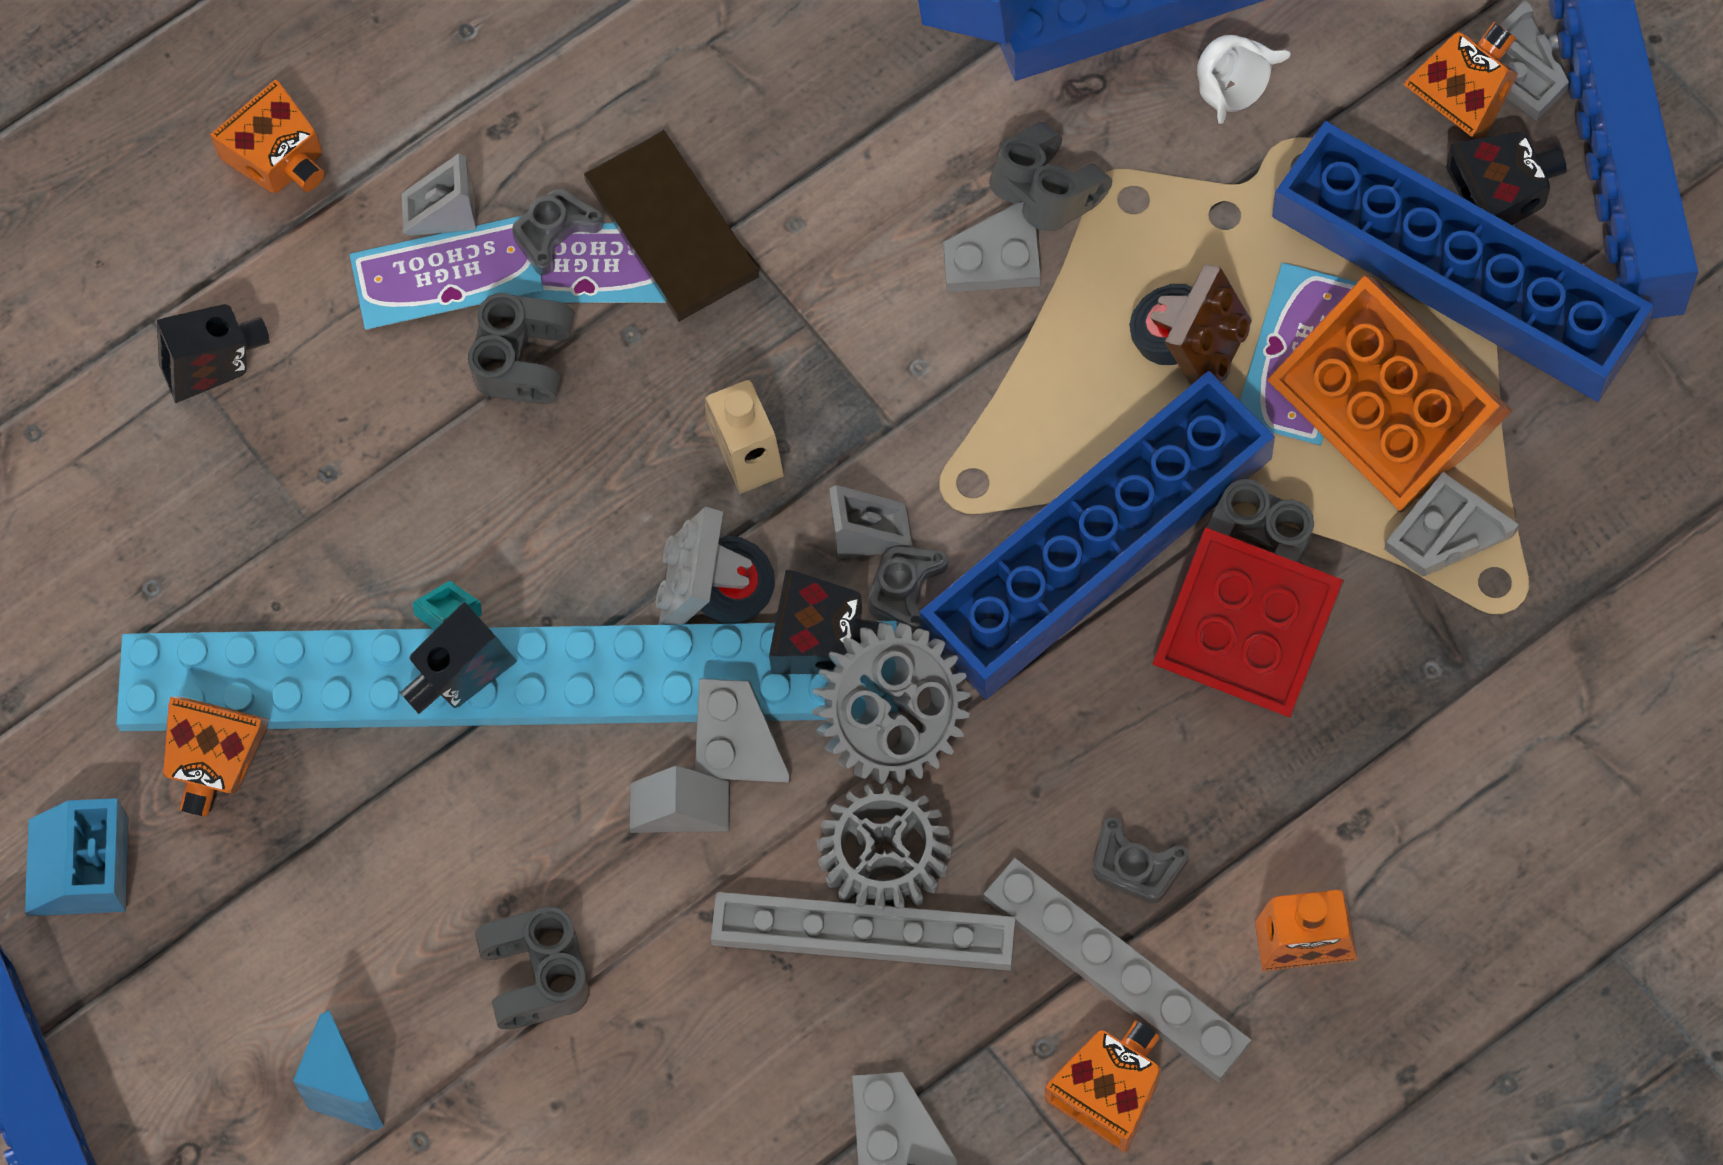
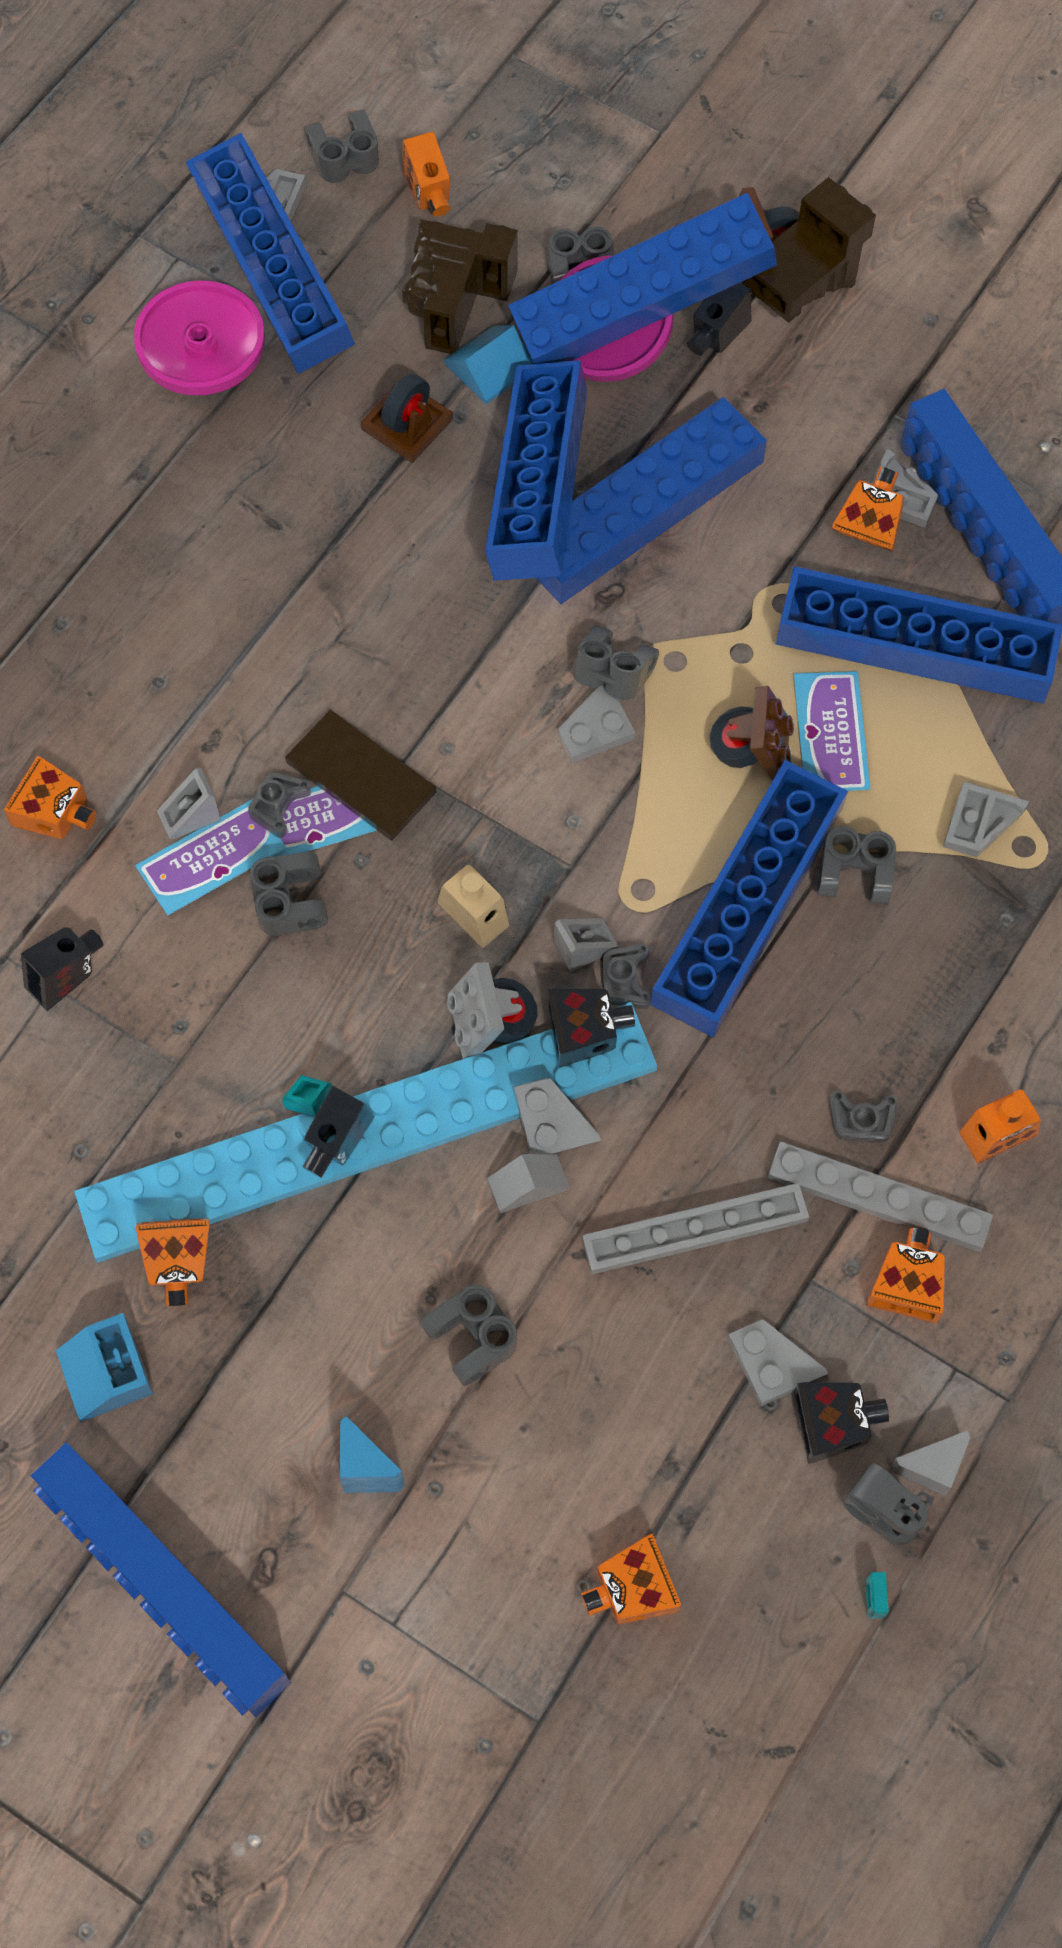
camera: 25 degrees left, 0 degrees up
(865, 738) = (646, 1092): light grey gear -> none
(905, 816) = (674, 1159): light grey gear -> none
(1238, 61) = (716, 546): white hair -> none
(1248, 622) = (877, 925): red plate -> none
(1388, 393) = (905, 740): orange slope -> none
(1504, 174) = (920, 567): black torso -> none

